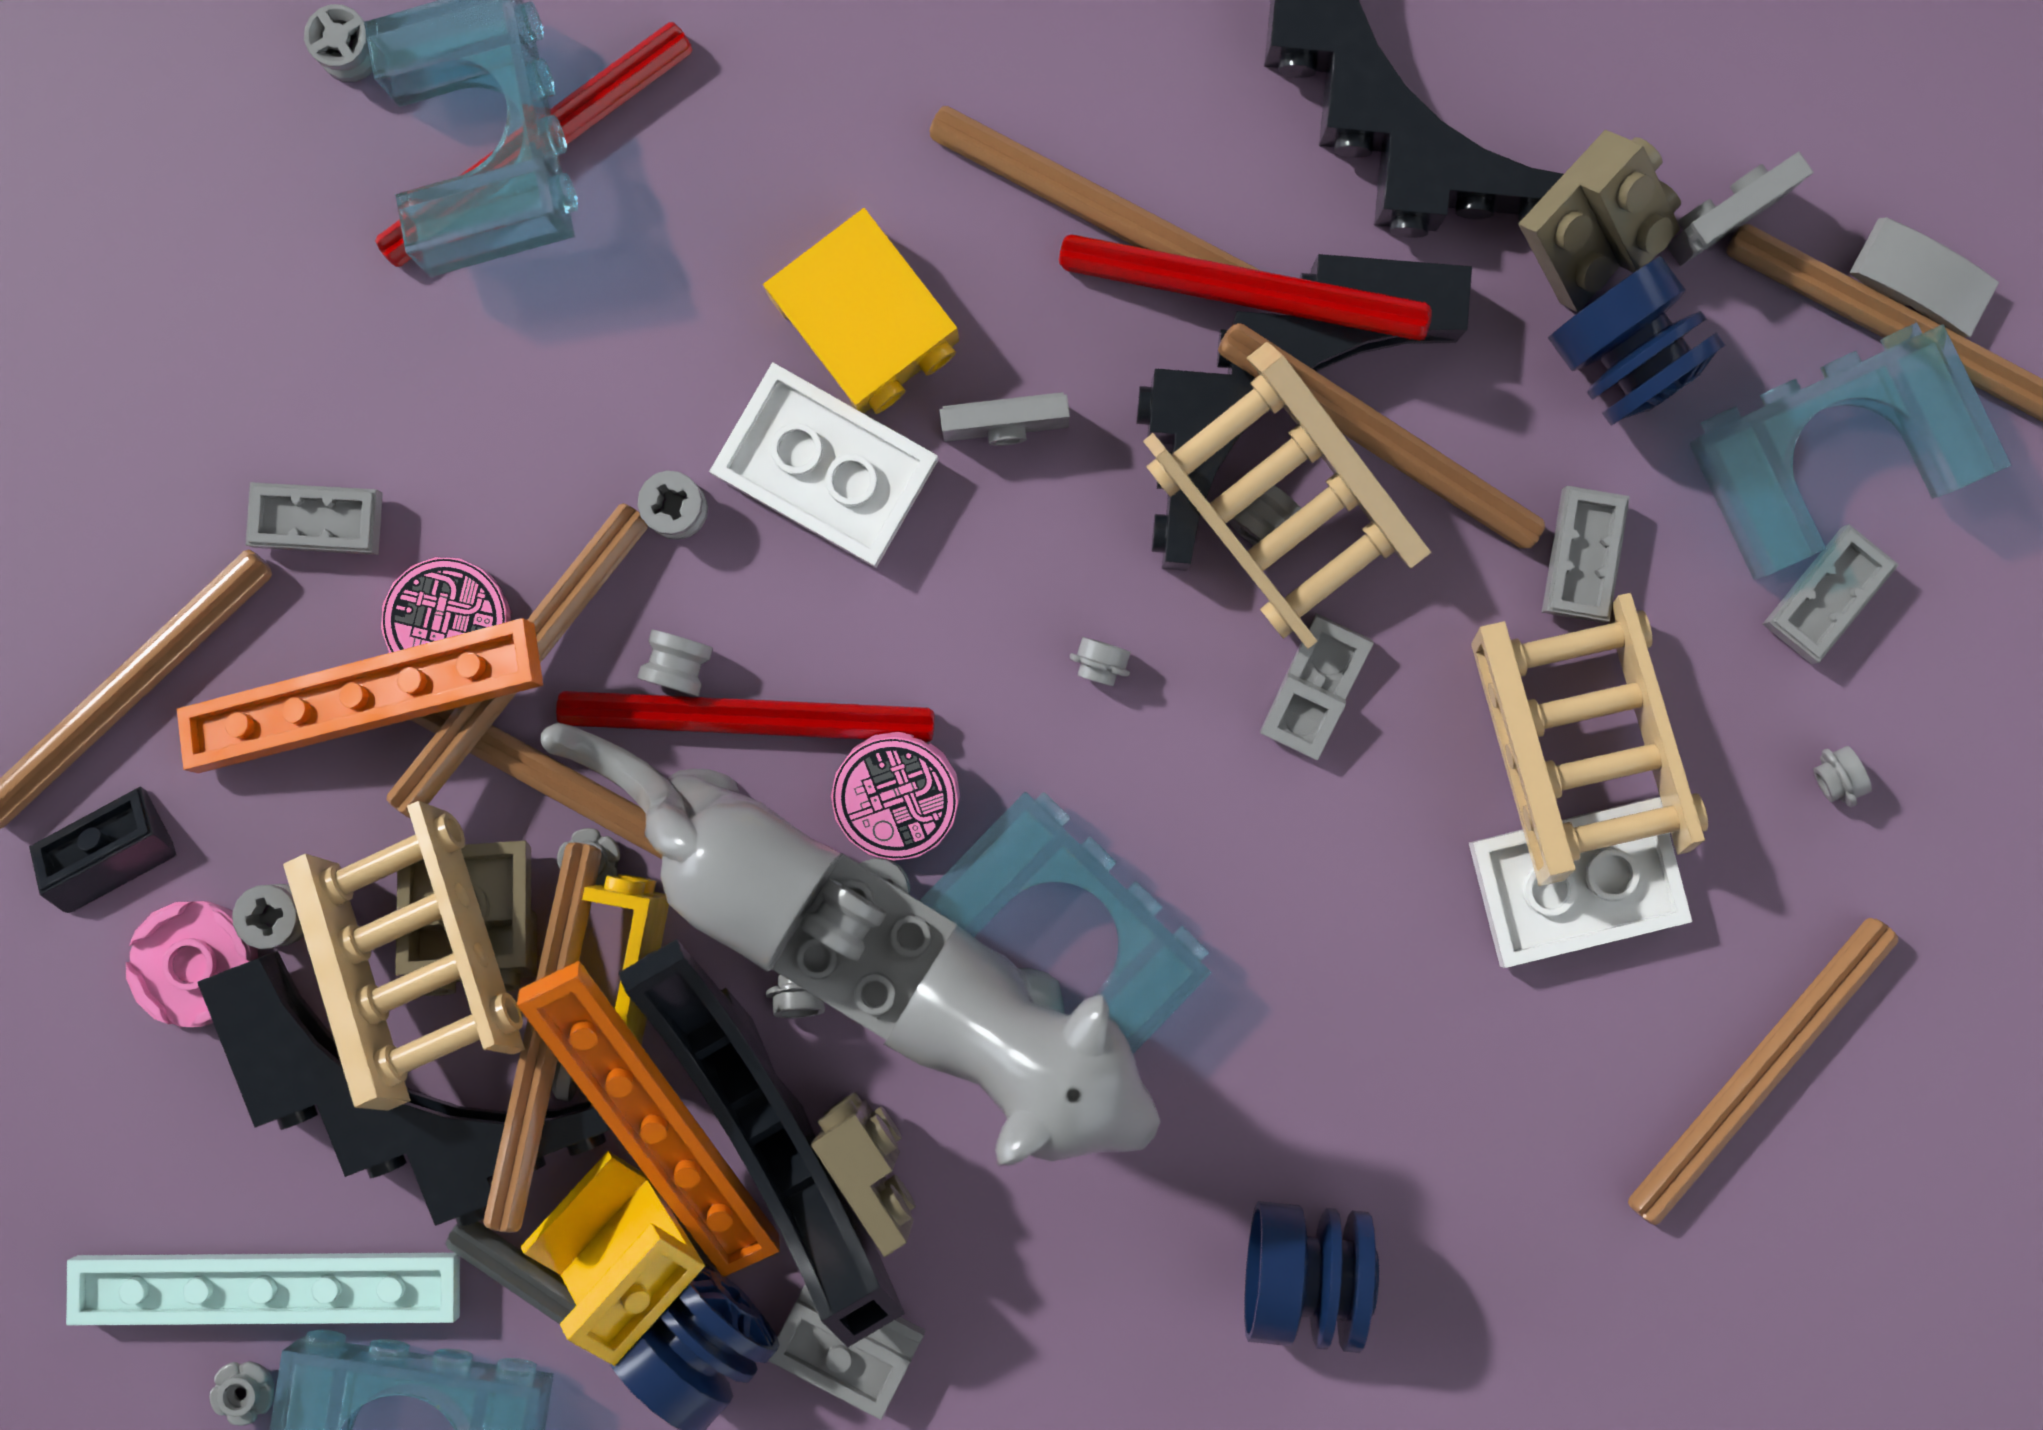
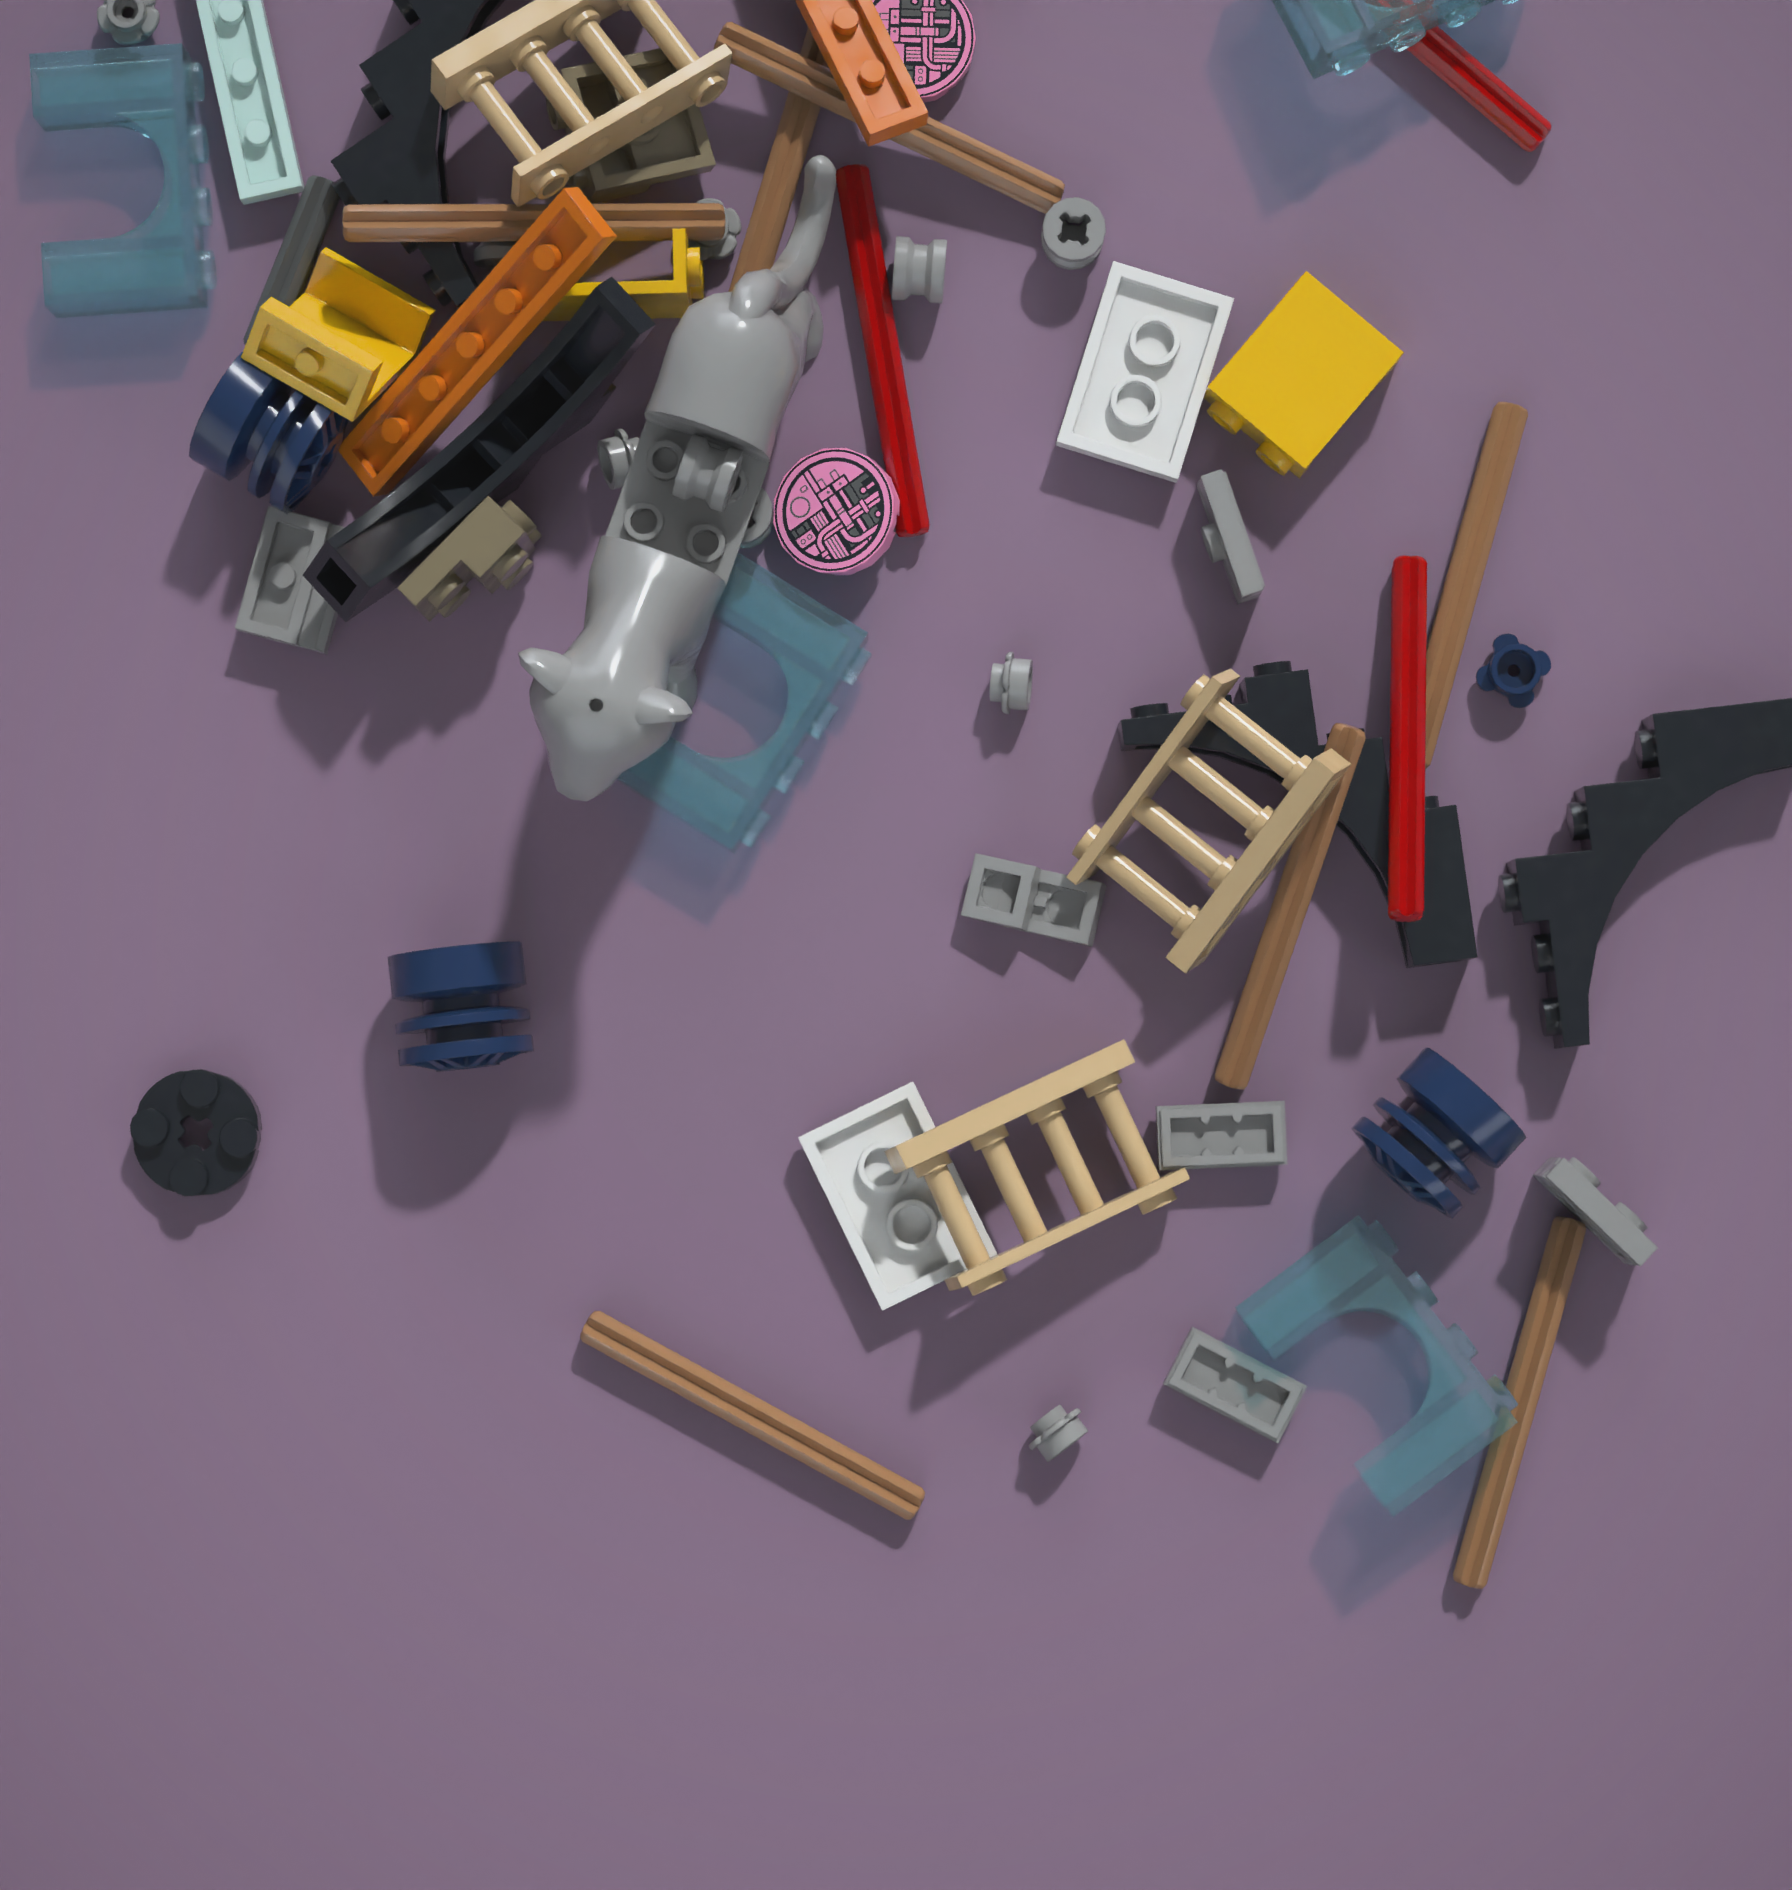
camera: 70 degrees right, 0 degrees up
(1192, 157) = (1531, 667): none -> dark blue plate
(1264, 515) = (1191, 808): light grey wheel -> none
(1601, 218) = (1553, 1074): dark tan plate -> none
(1924, 275) = (1571, 1414): light grey slope -> none

